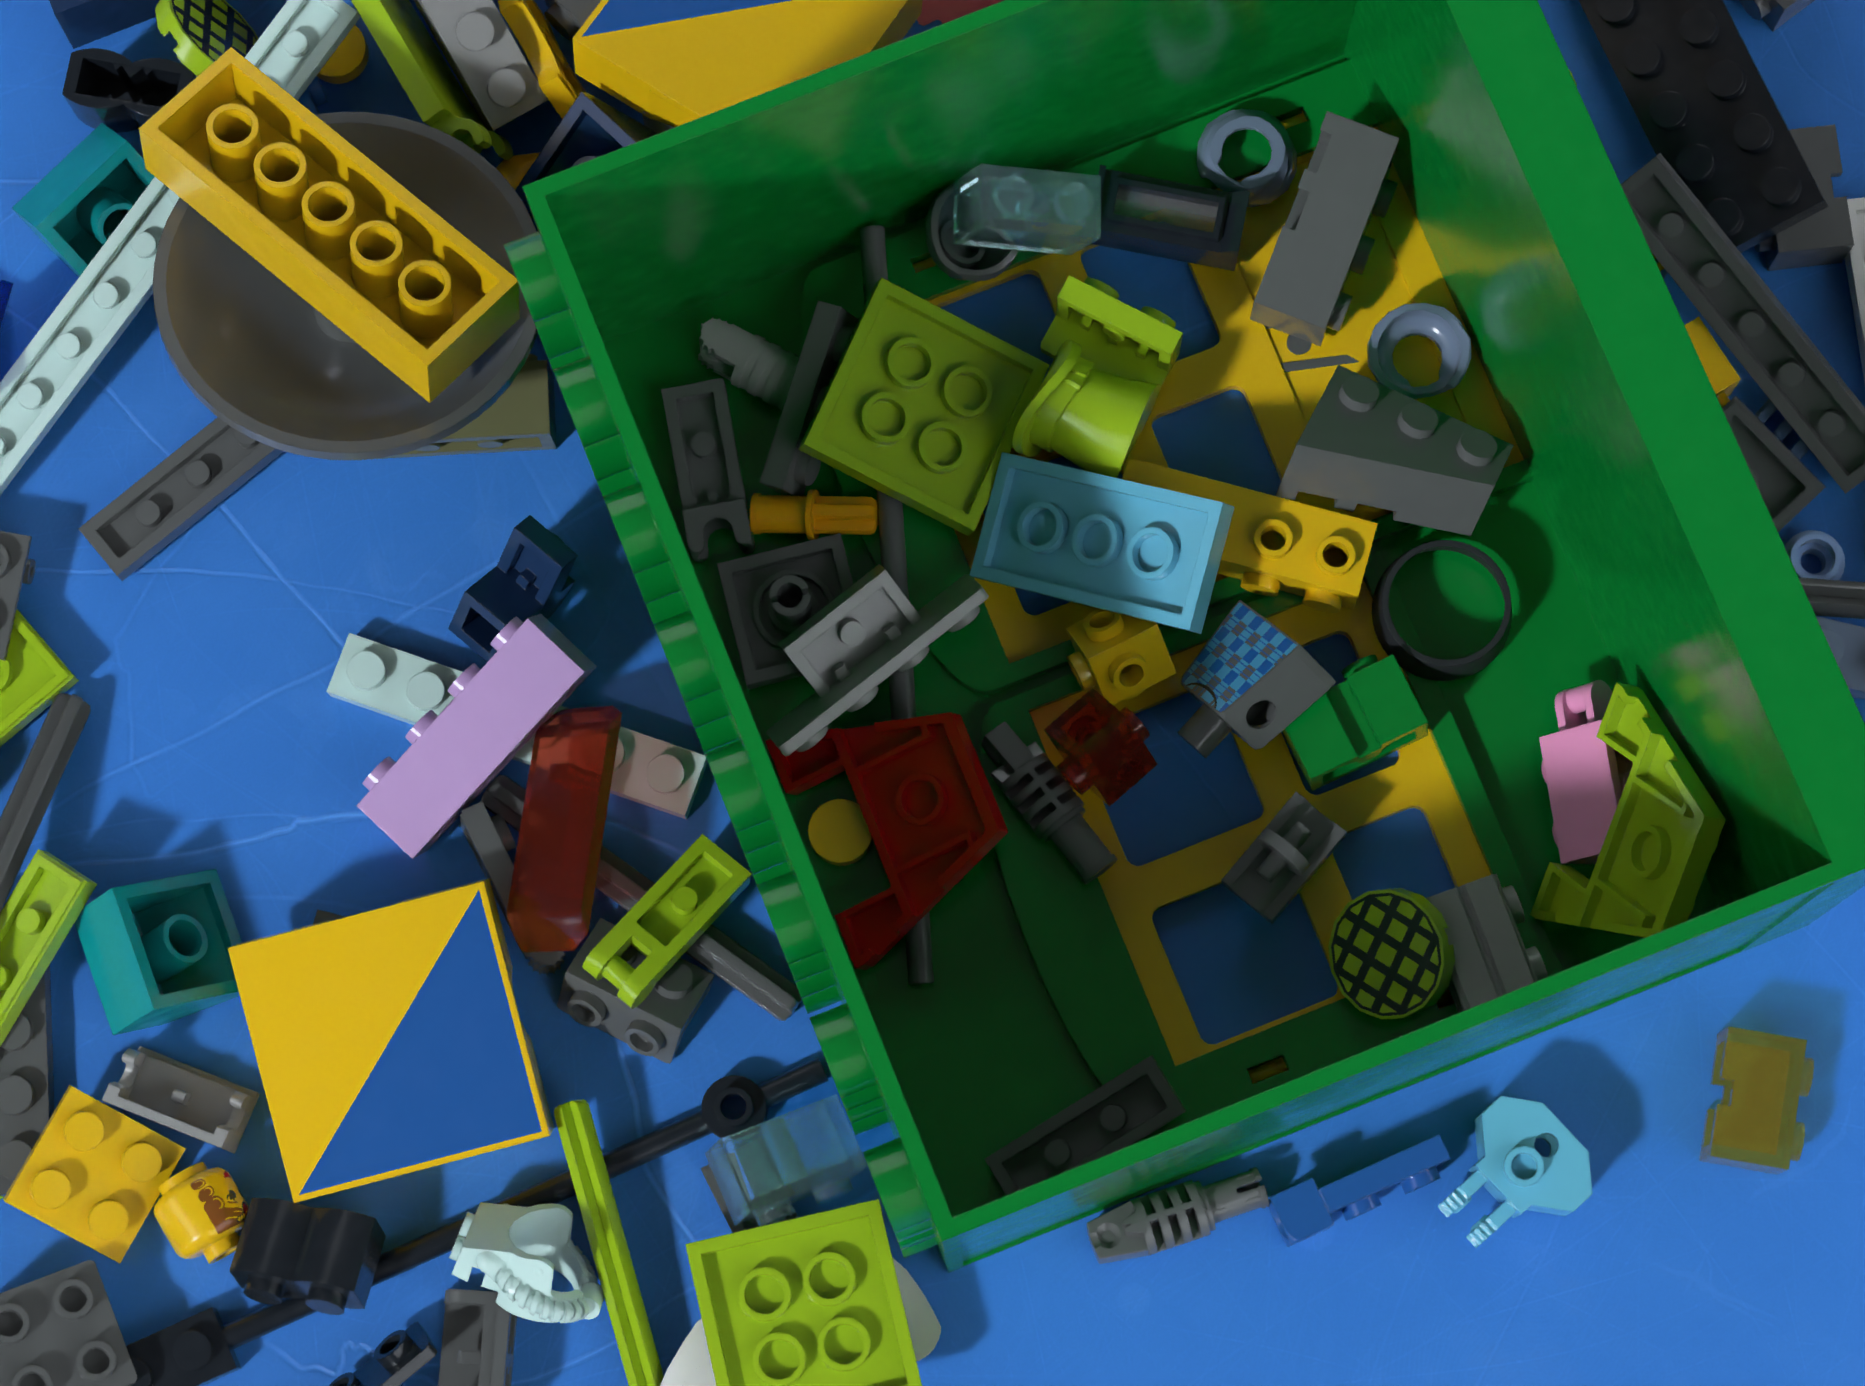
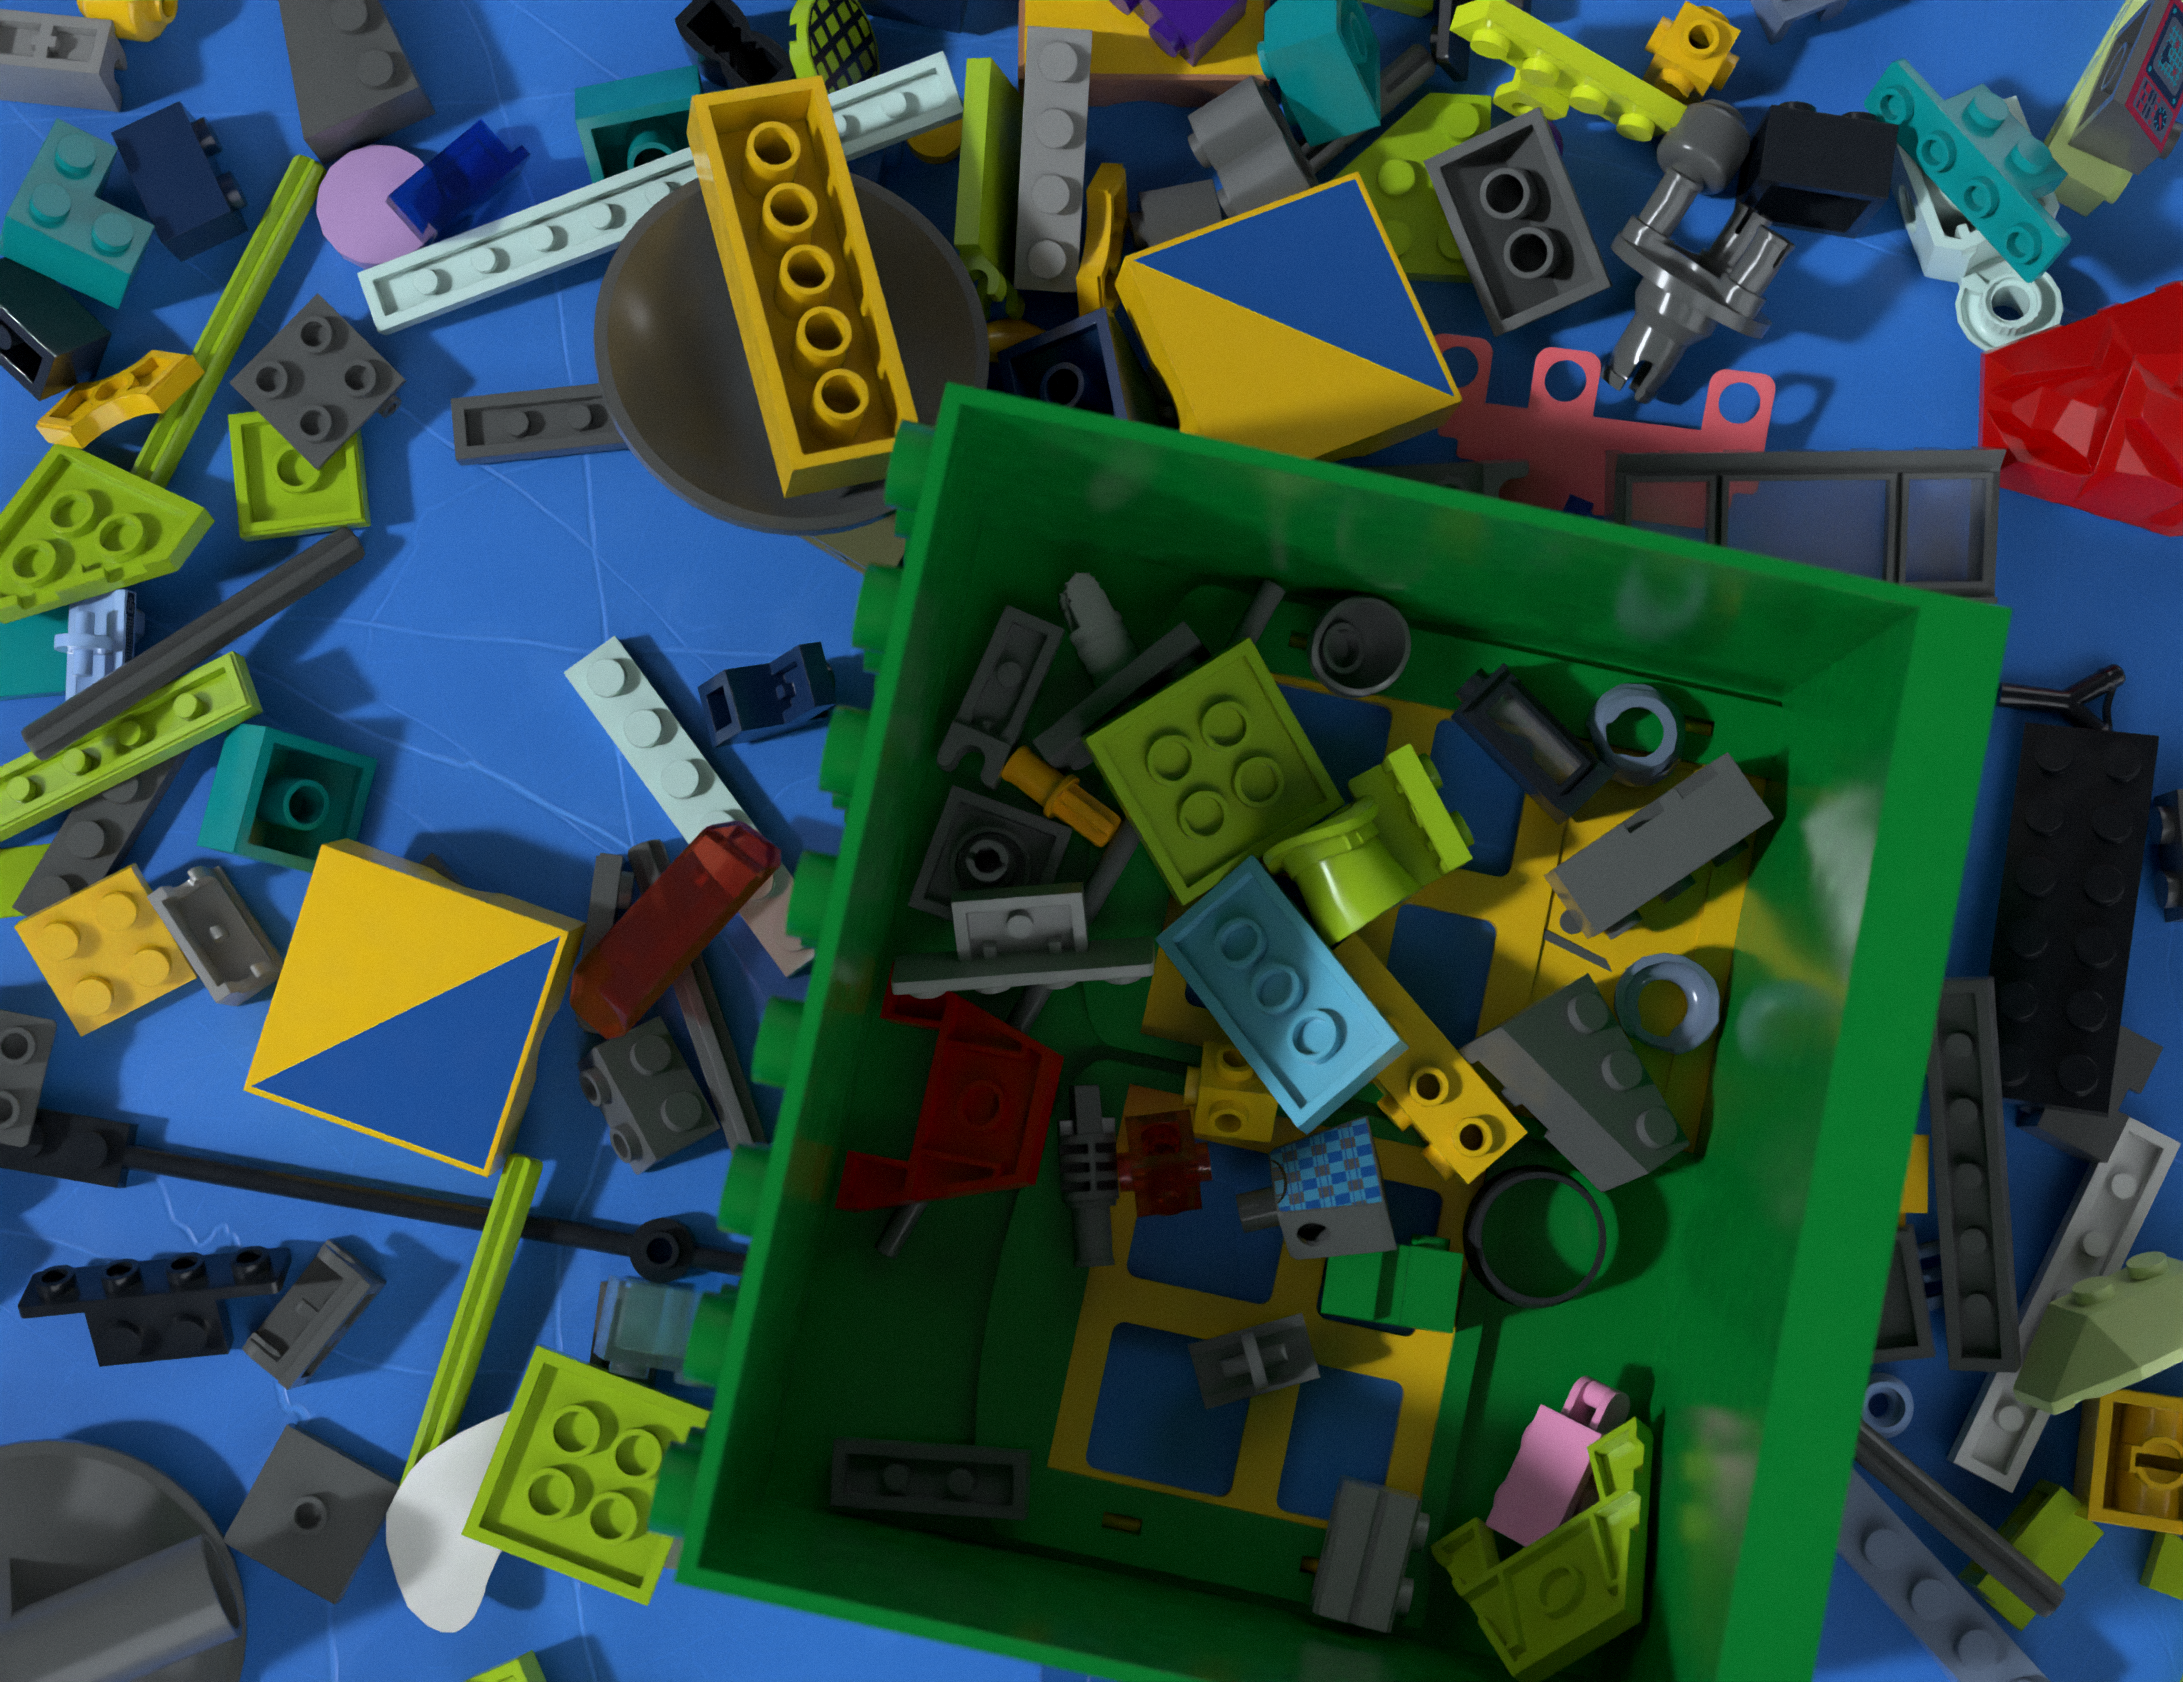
camera: 30 degrees right, 5 degrees up
(201, 1212) = (172, 1042): yellow head -> none
(307, 1254) = (230, 1137): black brick -> none
(475, 734) = (653, 796): lavender brick -> none
(519, 1254) = (380, 1286): light aqua piece -> none
(668, 919) = (695, 1063): lime plate -> none
(839, 832) = (901, 1079): yellow tile -> none
(1027, 209) = (1413, 661): clear light blue brick -> none
(1391, 953) = (1287, 1505): tile -> none

